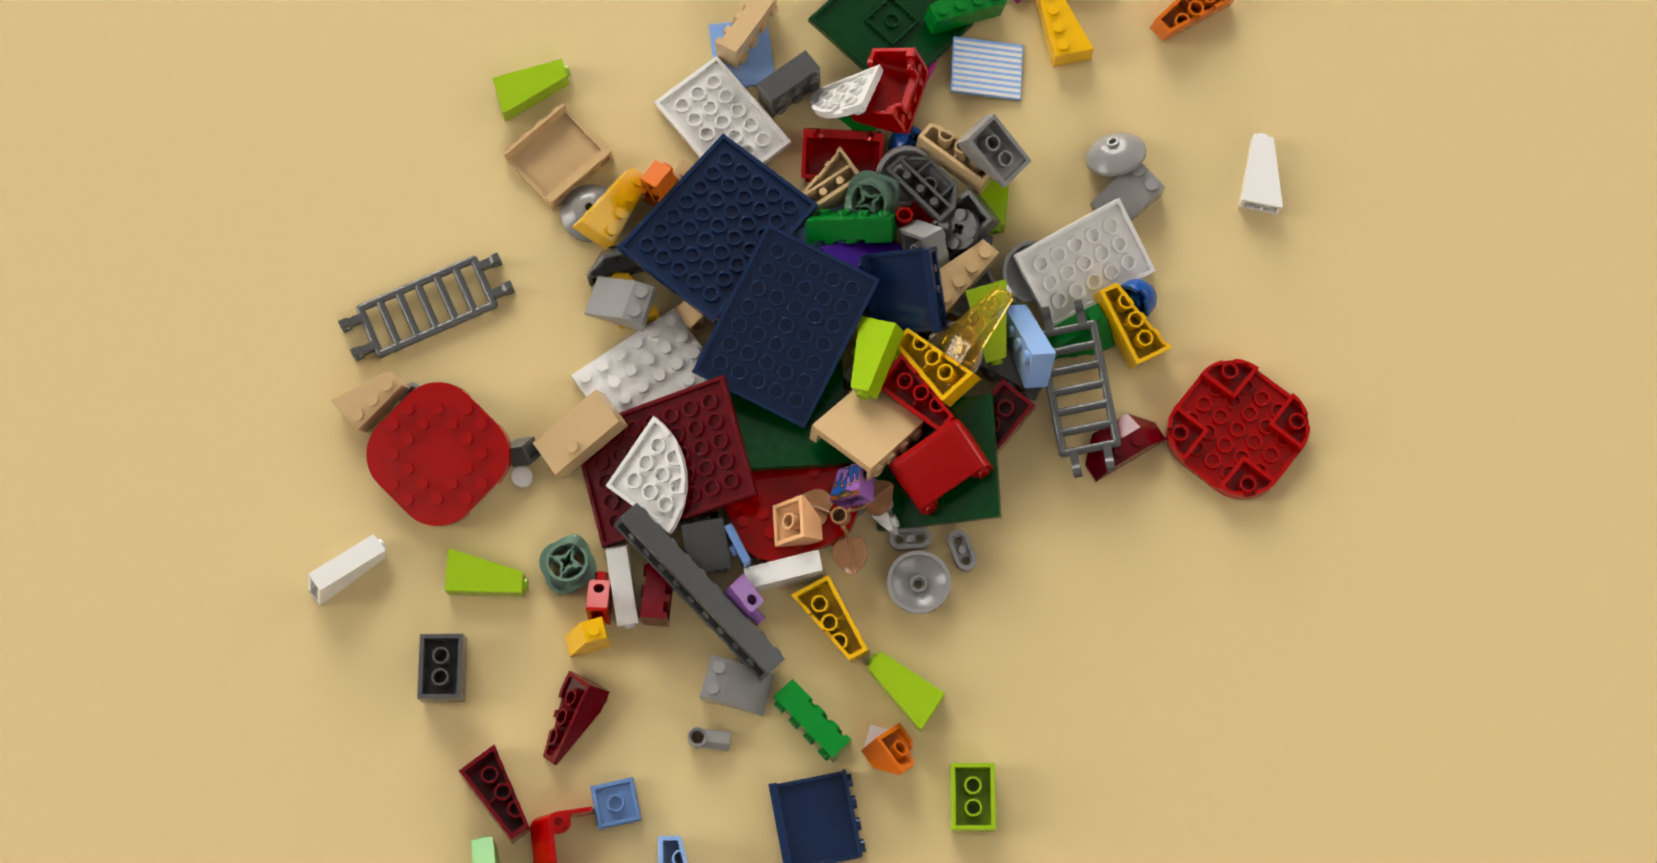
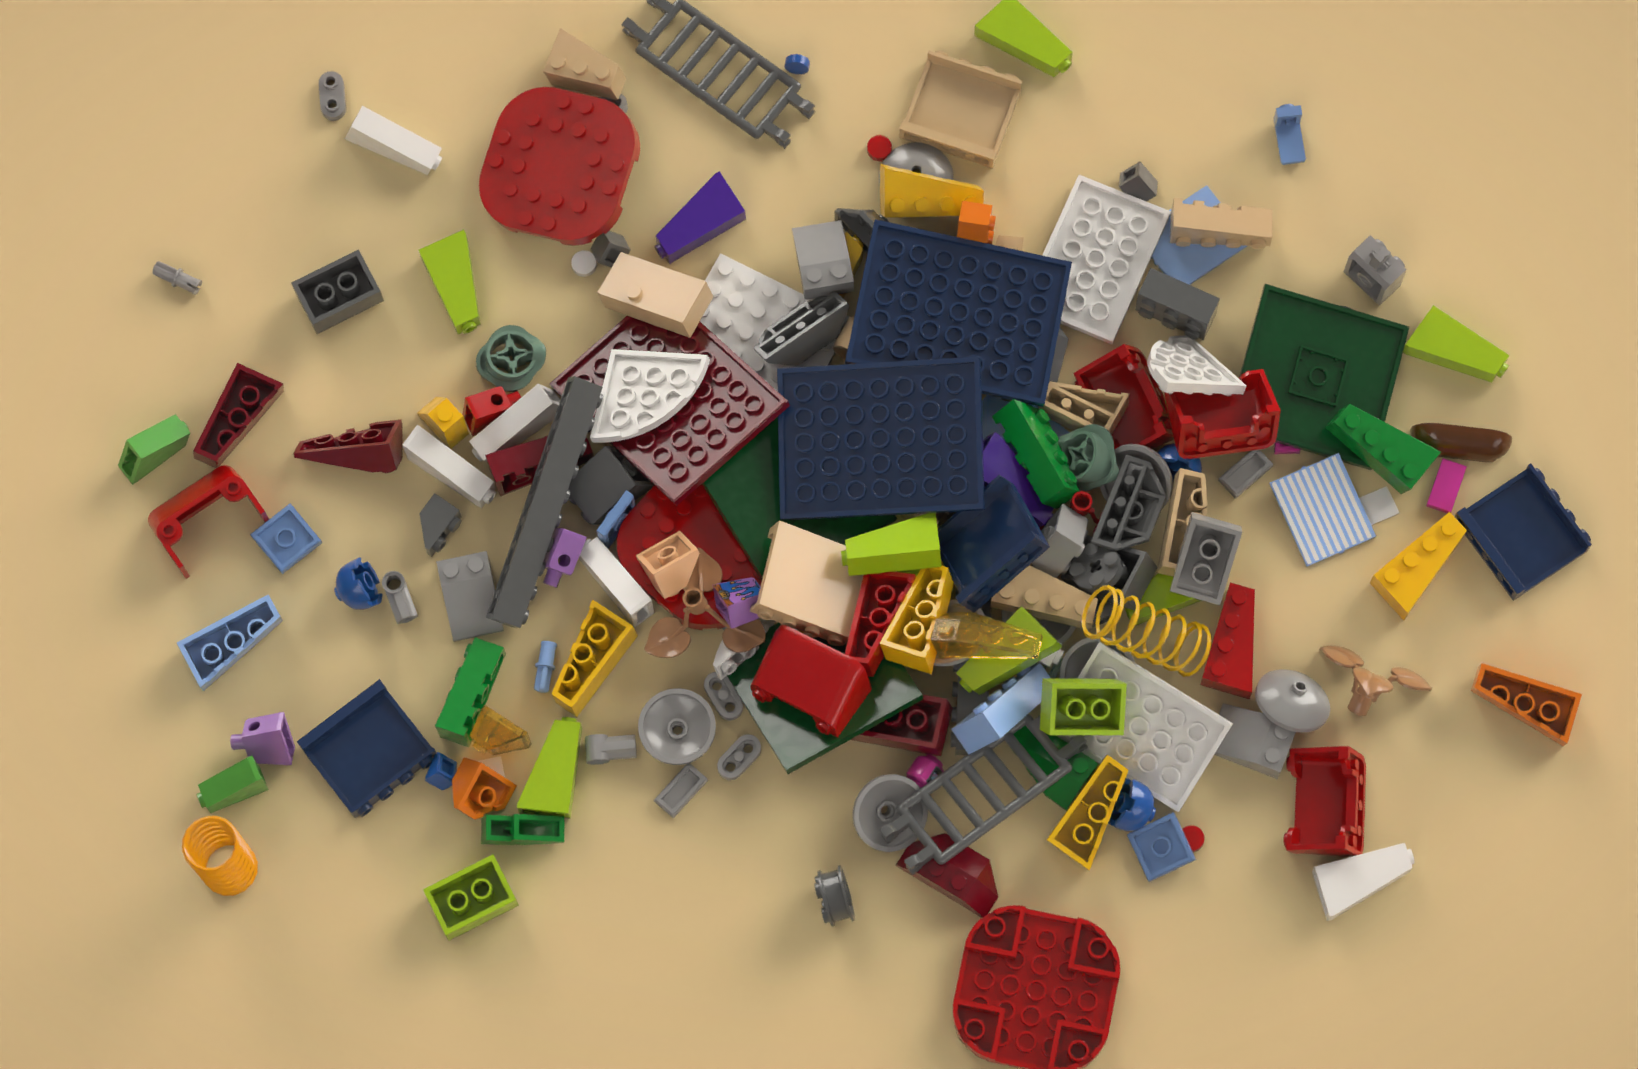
camera: 65 degrees right, 0 degrees up
(279, 597) = (332, 94): none -> light grey plate
(358, 787) = (177, 277): none -> light grey axle
(457, 250) = (797, 64): none -> blue tile
(537, 373) = (700, 219): none -> dark purple slope
(554, 226) = (879, 147): none -> red tile
(629, 651) = (448, 467): none -> white slope
(664, 682) = (437, 521): none -> dark grey slope
(667, 342) = (803, 331): none -> dark grey wedge
(682, 66) = (1138, 182): none -> dark grey panel
(684, 766) = (357, 585): none -> blue cylinder
(820, 657) = (545, 666): none -> light blue axle
(855, 716) = (497, 734): none -> clear yellow slope
(862, 773) = (441, 771): none -> blue slope
(906, 643) = (602, 749): none -> light grey piece
(932, 105) = (1245, 472): none -> light grey tile
(937, 735) = (522, 829): none -> green slope
(964, 605) = (681, 790): none -> light grey tile
(1000, 216) = (1116, 615): none -> yellow piece
(1001, 32) = (1379, 505): none -> white sticker
(1040, 426) = (924, 769): none -> dark pink head
(1055, 470) = (867, 815): none -> light grey dish
(1057, 176) = (1231, 652): none -> red wedge
(1058, 288) = (1082, 706): none -> lime brick
(1103, 531) = (836, 896): none -> dark grey wheel
(1135, 107) = (1370, 684): none -> medium nougat plant
(1175, 294) = (1161, 847): none -> medium blue plate
(1177, 272) = (1194, 836): none -> red tile
(1197, 171) = (1327, 801): none -> red windscreen

